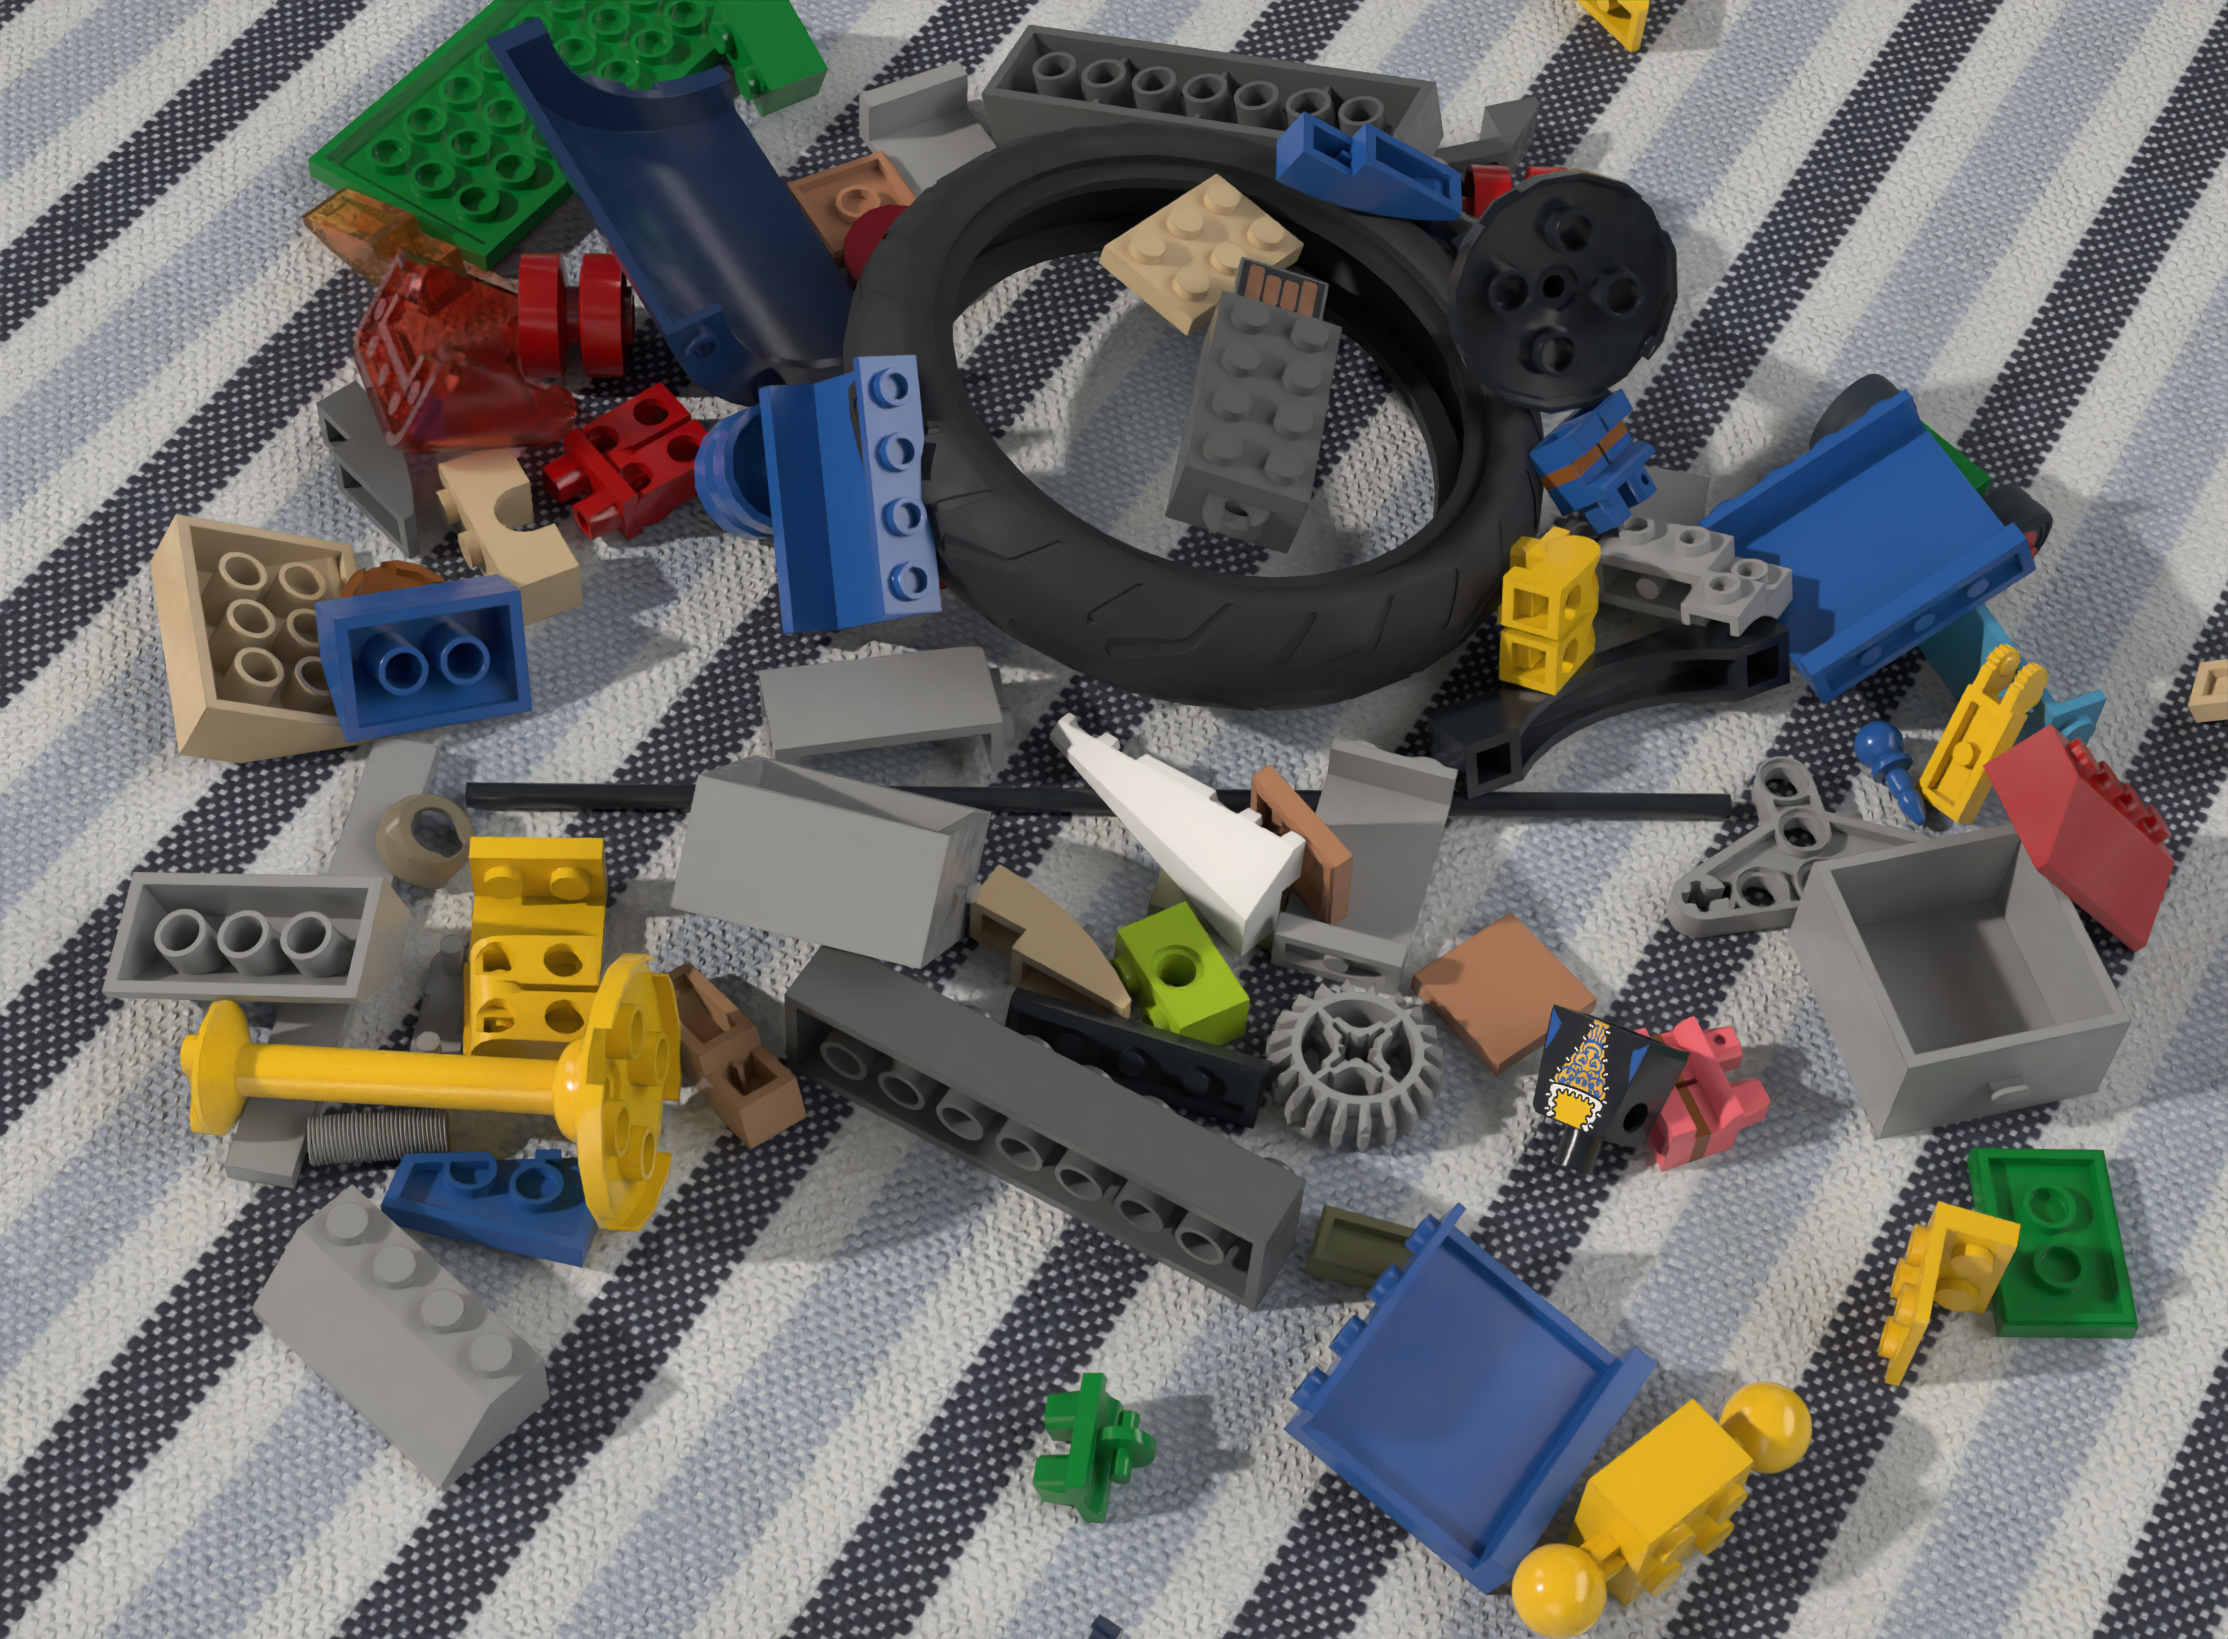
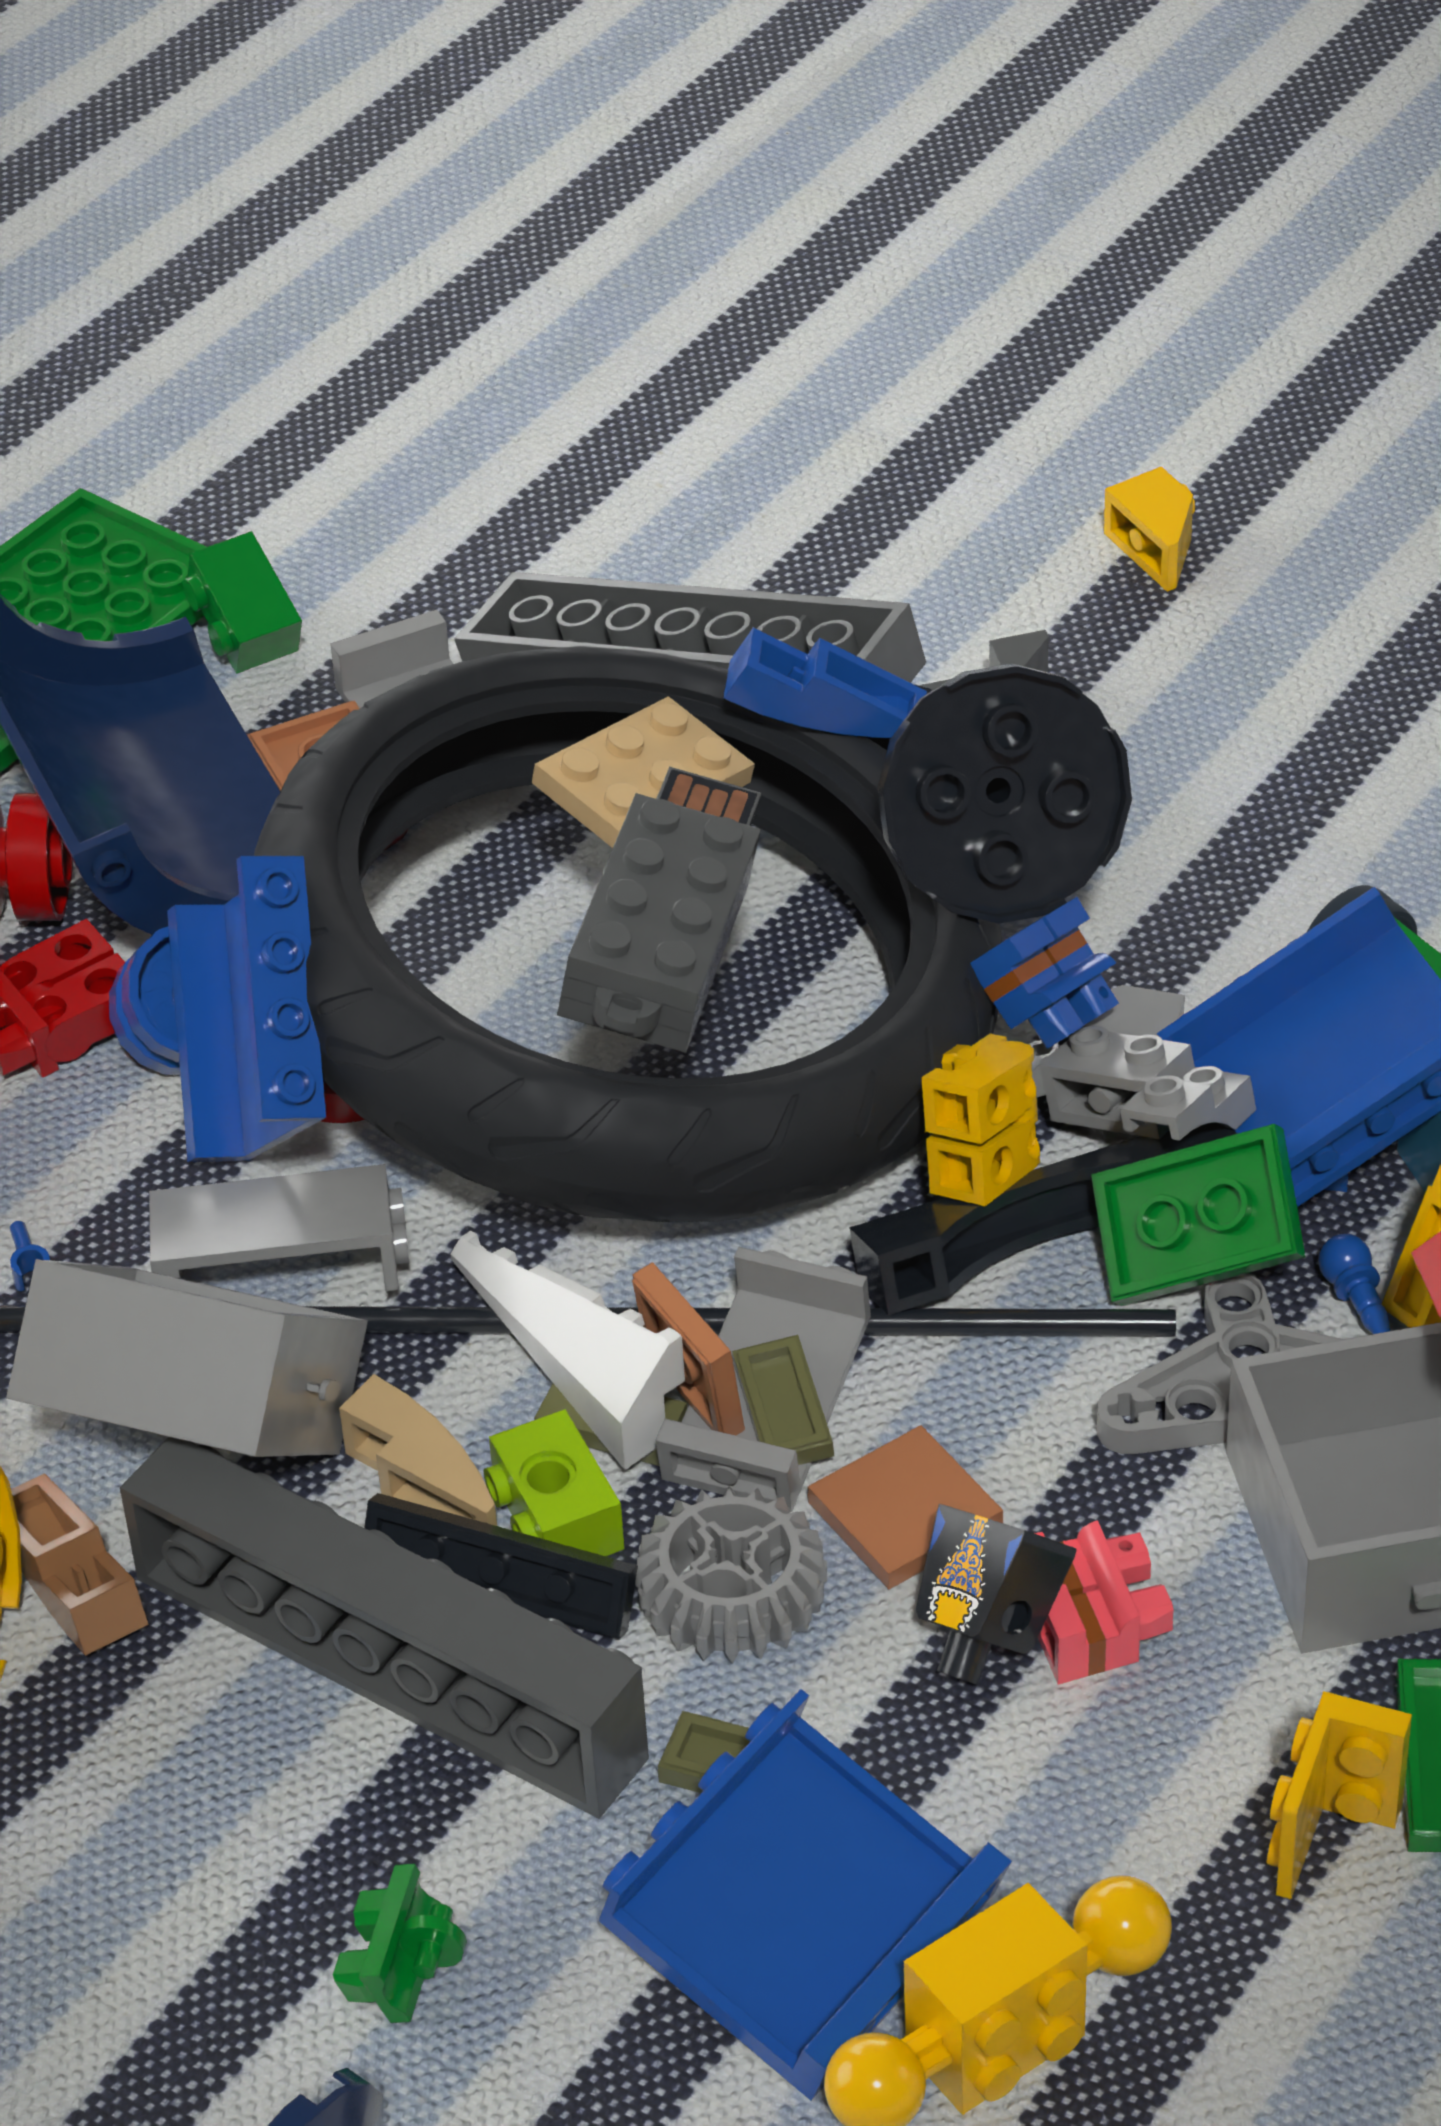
camera: 10 degrees right, 10 degrees down
(640, 731) = (25, 1255): none -> blue hand
(1385, 889) = (783, 1398): none -> olive tile
(1753, 707) = (1198, 1215): none -> green tile

